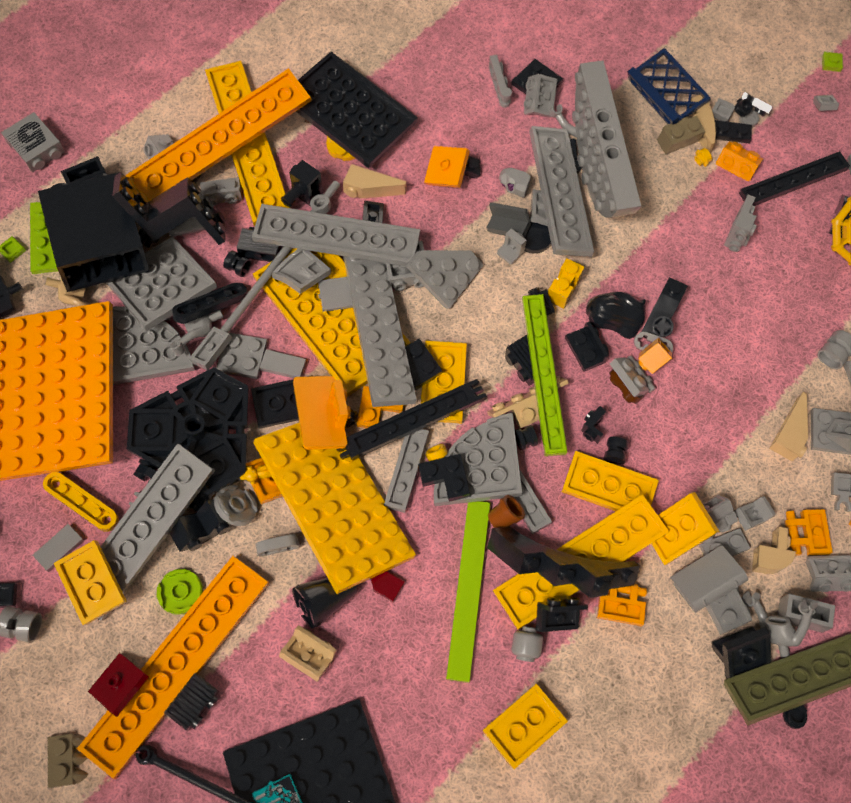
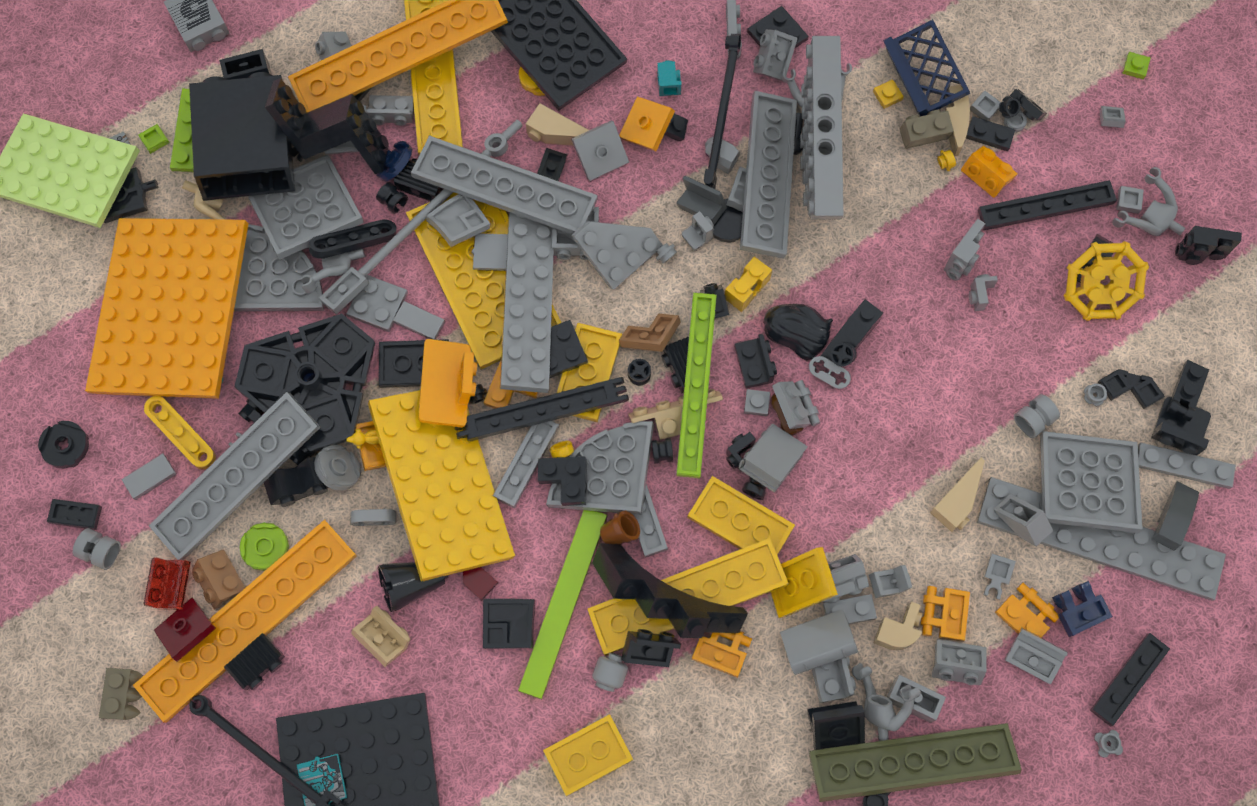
camera: 15 degrees right, 5 degrees up
(90, 582) = (173, 520): yellow plate -> none
(93, 645) = (166, 584): none -> clear red bracket
(140, 630) = (217, 578): none -> medium nougat bracket
(235, 231) = (395, 161): none -> dark blue tile
(305, 184) = (482, 118): black brick -> none
(412, 194) = (600, 150): none -> light grey plate
(423, 618) = (508, 623): none -> black plate
(455, 129) = (668, 79): none -> teal brick
(487, 269) = (666, 252): none -> light grey plate
(487, 369) = (639, 367): none -> black wheel
(495, 341) = (652, 338): none -> medium nougat plate
(505, 91) = (732, 43): none -> black hinge
(597, 381) = (757, 402): none -> light grey plate
(625, 424) = (772, 457): none -> light grey piece
(640, 113) = (888, 94): none -> yellow plate
(654, 356) = (826, 386): light orange brick -> none
(759, 256) = (978, 291): none -> light grey bracket

